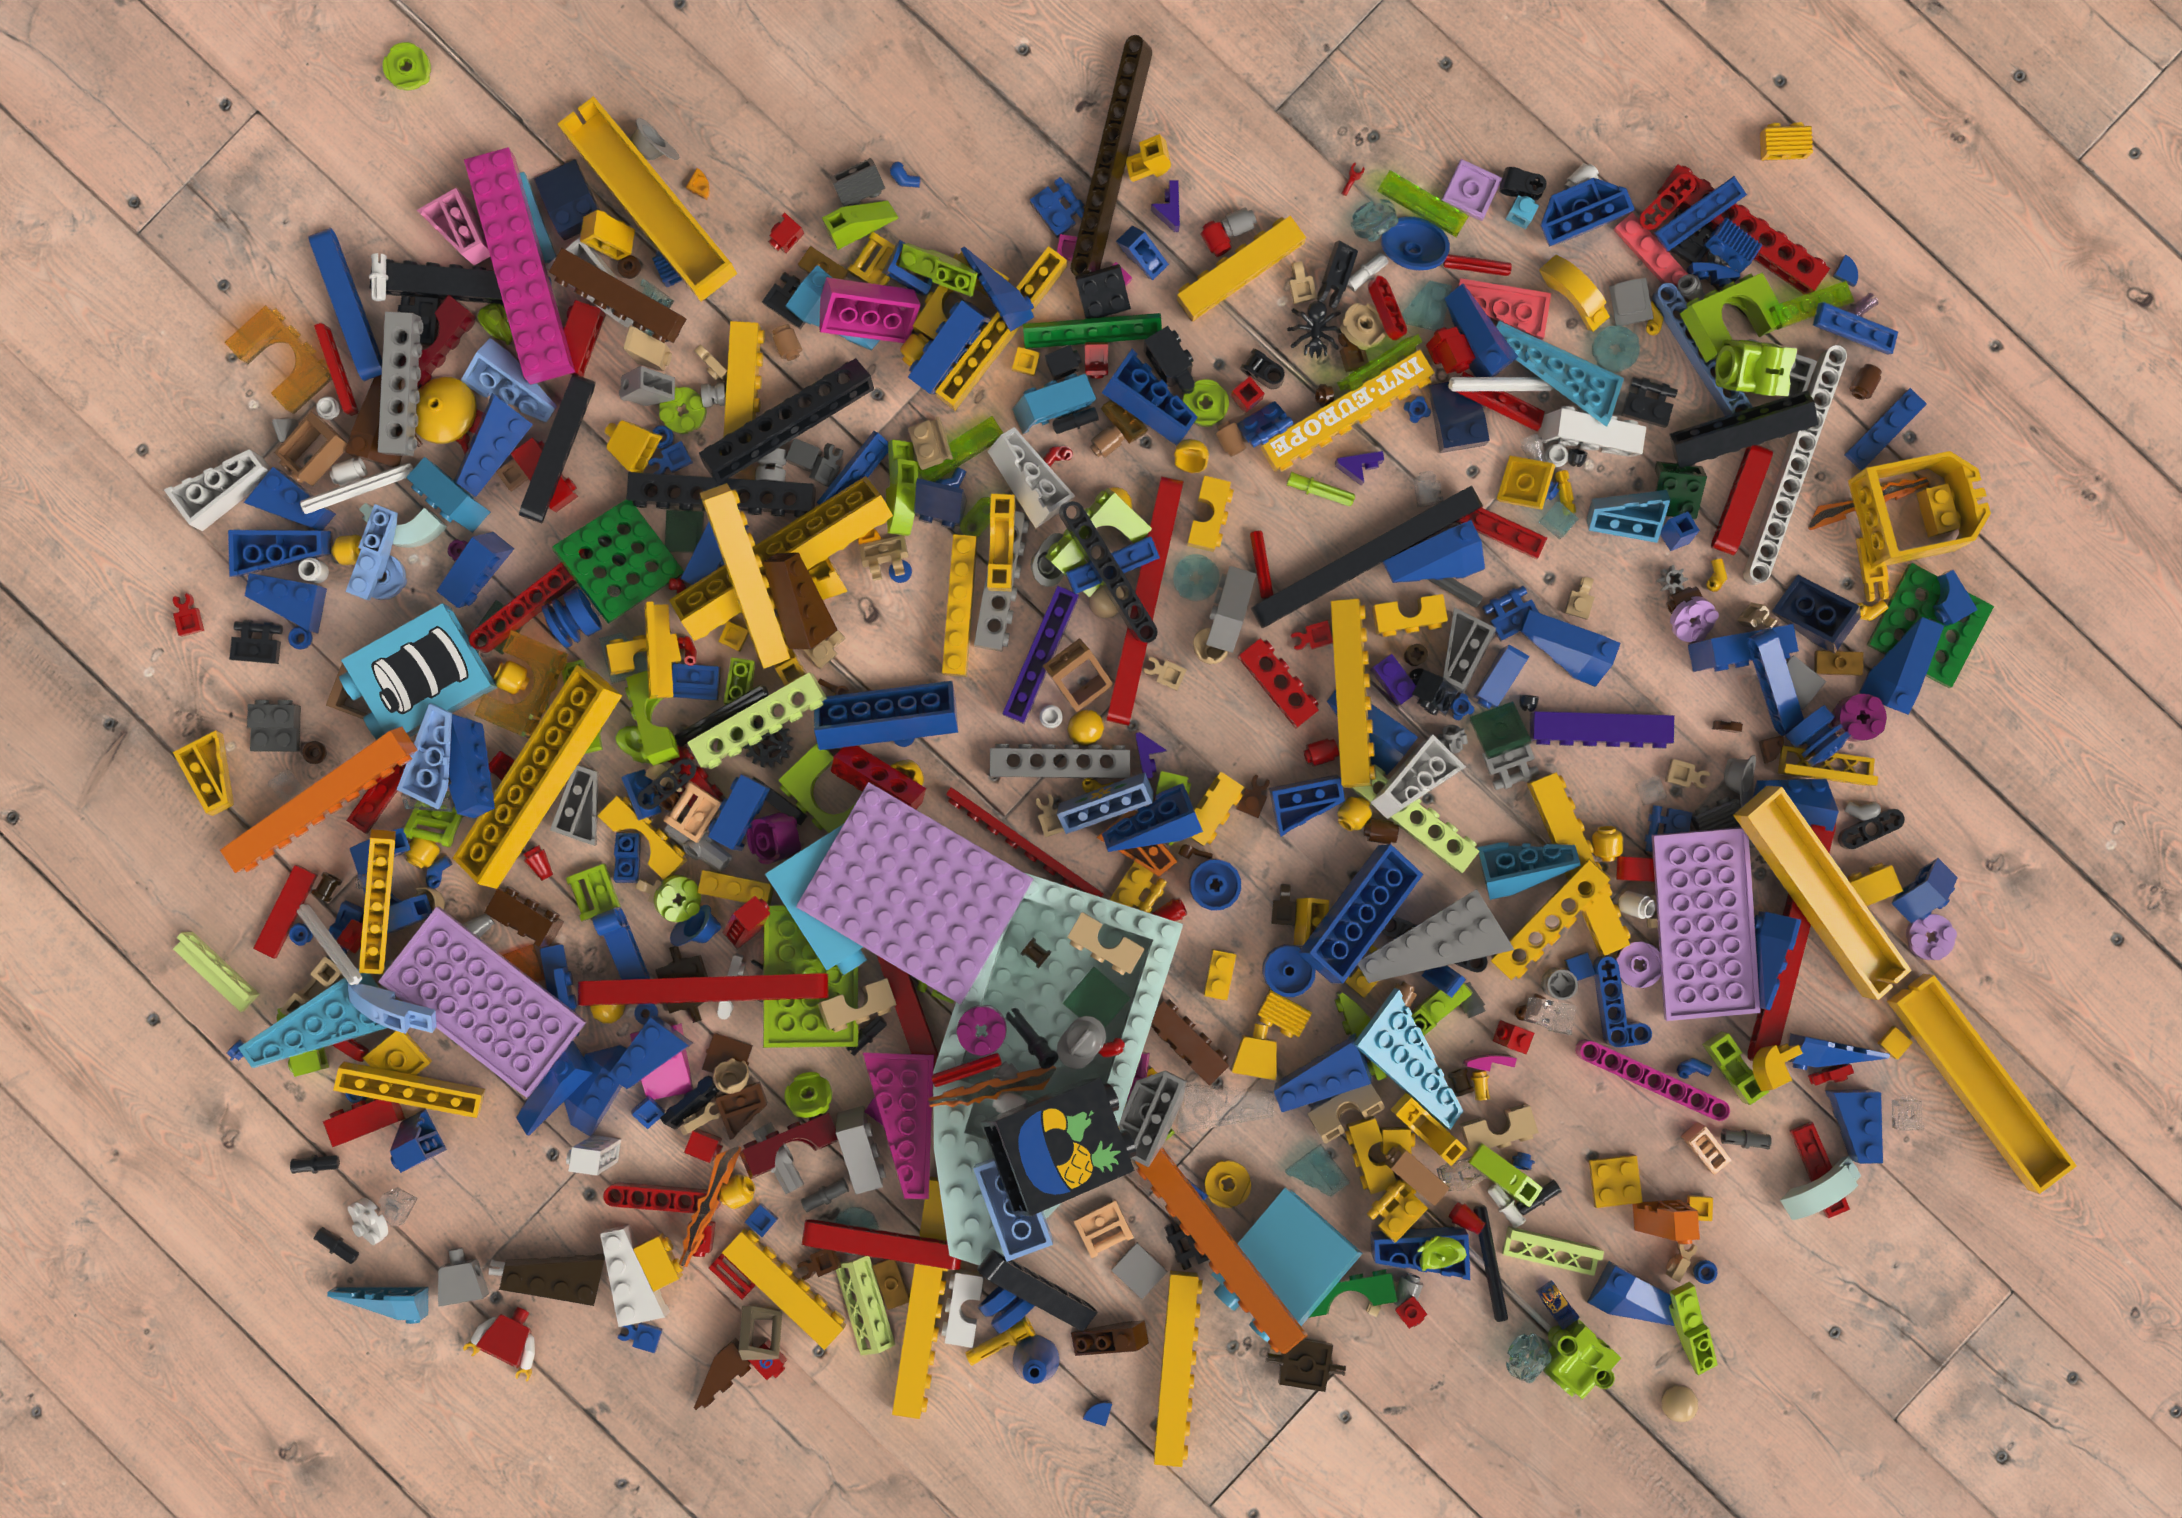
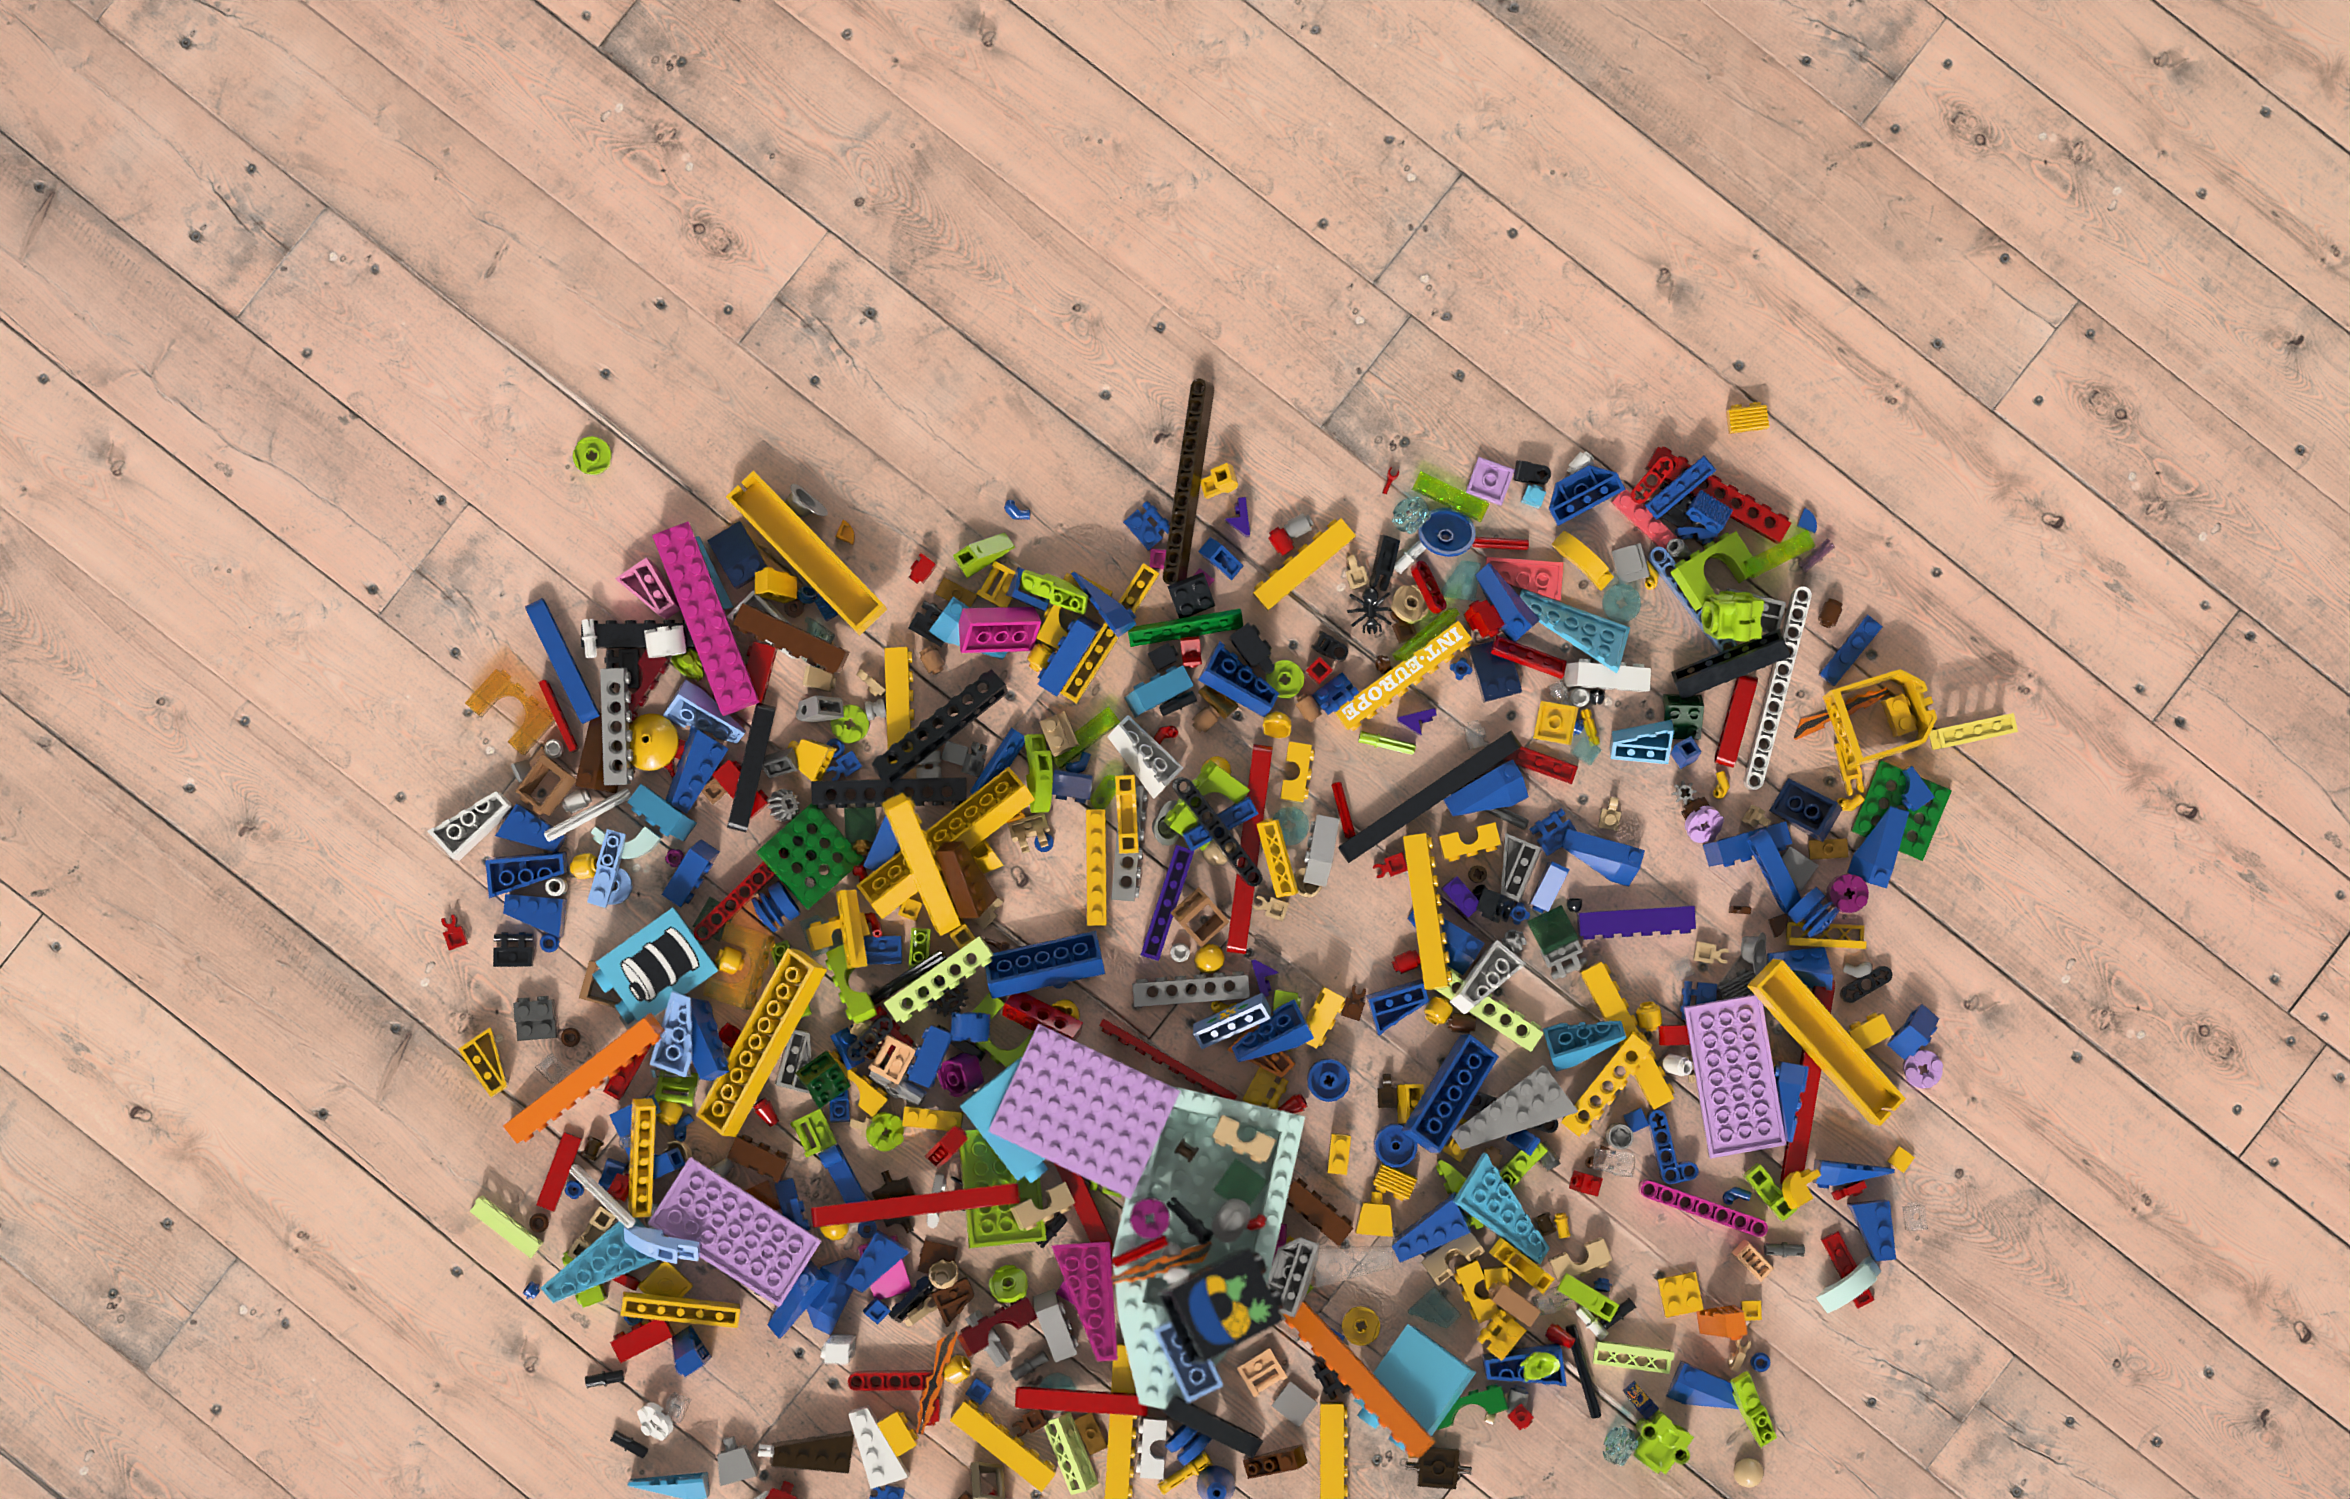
camera: 15 degrees left, 0 degrees up
(248, 970) = (534, 1226): none -> reddish brown plate
(466, 287) = (665, 641): none -> white brick
(592, 497) = (783, 805): none -> light grey gear
(593, 448) = (780, 763): none -> dark grey slope
(607, 828) = (823, 1079): none -> dark green bracket
(630, 743) = (833, 1005): lime hat -> none
(644, 252) = (806, 595): none -> blue plate
(682, 556) = (862, 847): none -> pearl gold plate
(696, 929) = (902, 1155): blue piece -> none
(703, 1145) = (926, 1334): red brick -> none
(713, 1267) = (972, 1448): red tile -> none
(789, 780) = (970, 1025): none -> blue brick
(858, 183) = (979, 522): dark grey brick -> none
(1026, 361) = (1132, 658): yellow plate -> none
(1049, 820) = (1186, 1037): tan plate -> none
(1177, 612) = (1277, 857): none -> yellow fence
(1187, 851) = (1303, 1053): reddish brown hand -> none
(1295, 714) = (1383, 932): red brick -> none
(1484, 1061) = (1563, 1205): dark pink slope -> none
(1498, 384) = (1524, 644): white axle -> none
(1648, 409) = (1653, 651): black plate -> none
(1651, 966) = (1694, 1115): lavender plate -> none
(1855, 328) = (1817, 570): blue tile -> none
(1981, 1083) = (1972, 1186): yellow piece -> none
(2030, 535) = (1973, 731): none -> light yellow fence

